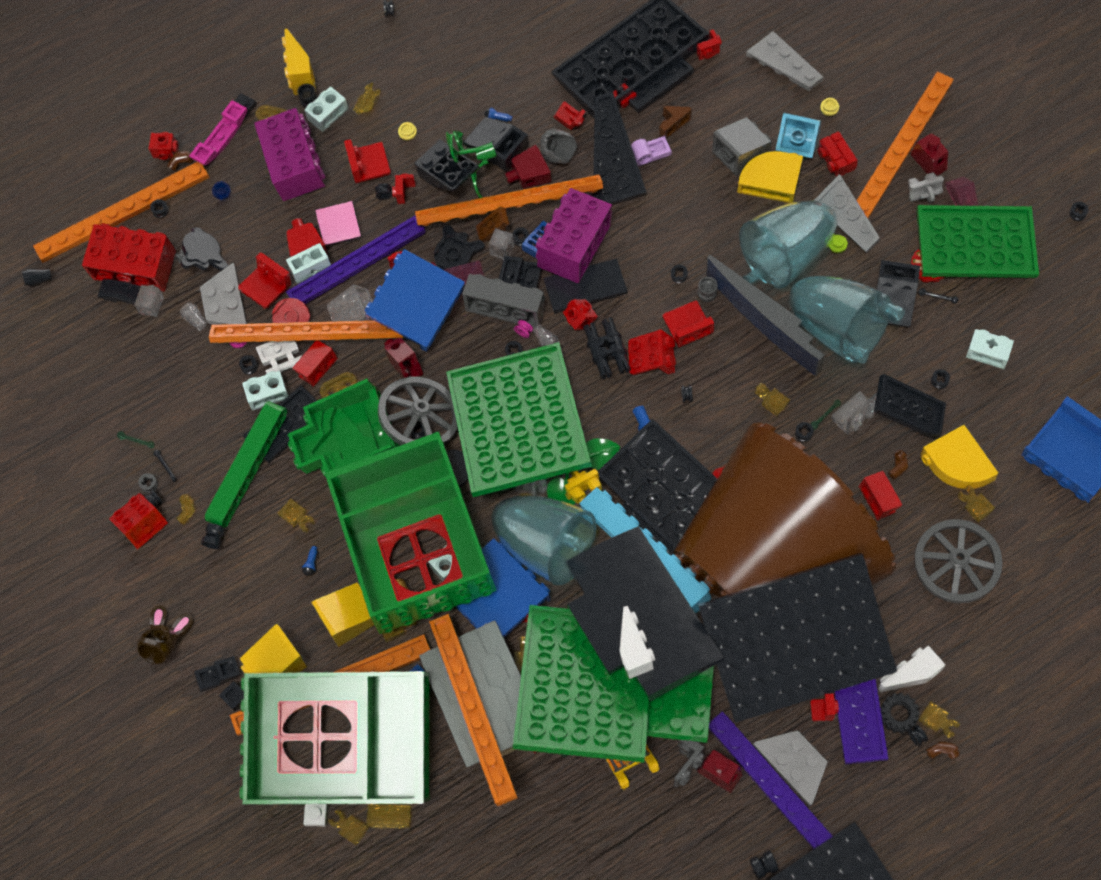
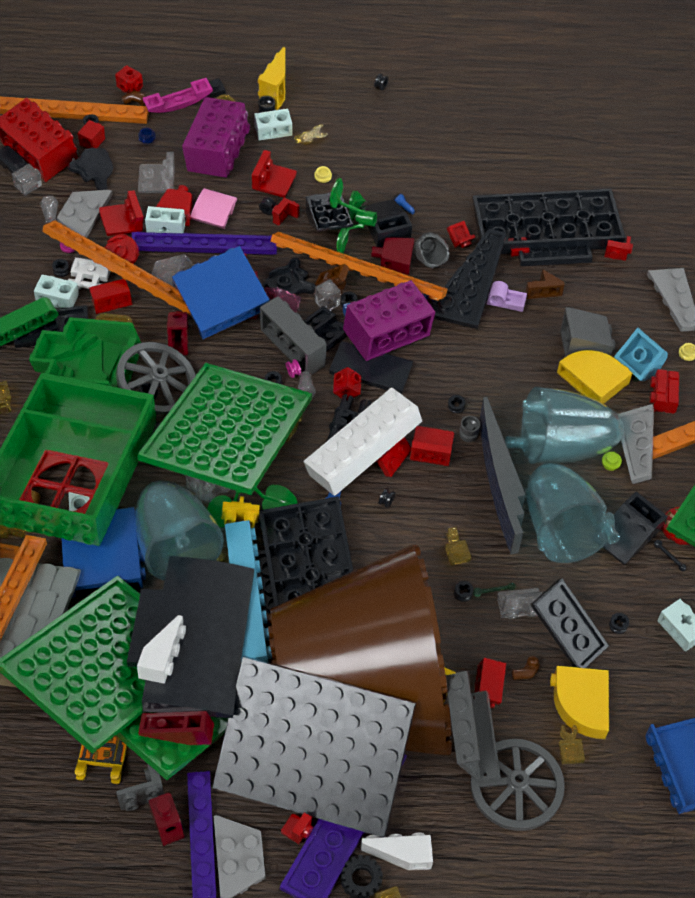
camera: 25 degrees right, 10 degrees down
(172, 221) = (91, 135): none -> red brick
(264, 224) = (157, 177): none -> clear bracket
(637, 358) = (363, 441): none -> white brick
(685, 696) = (178, 727): none -> dark red slope
(907, 541) = (472, 728): none -> dark grey panel

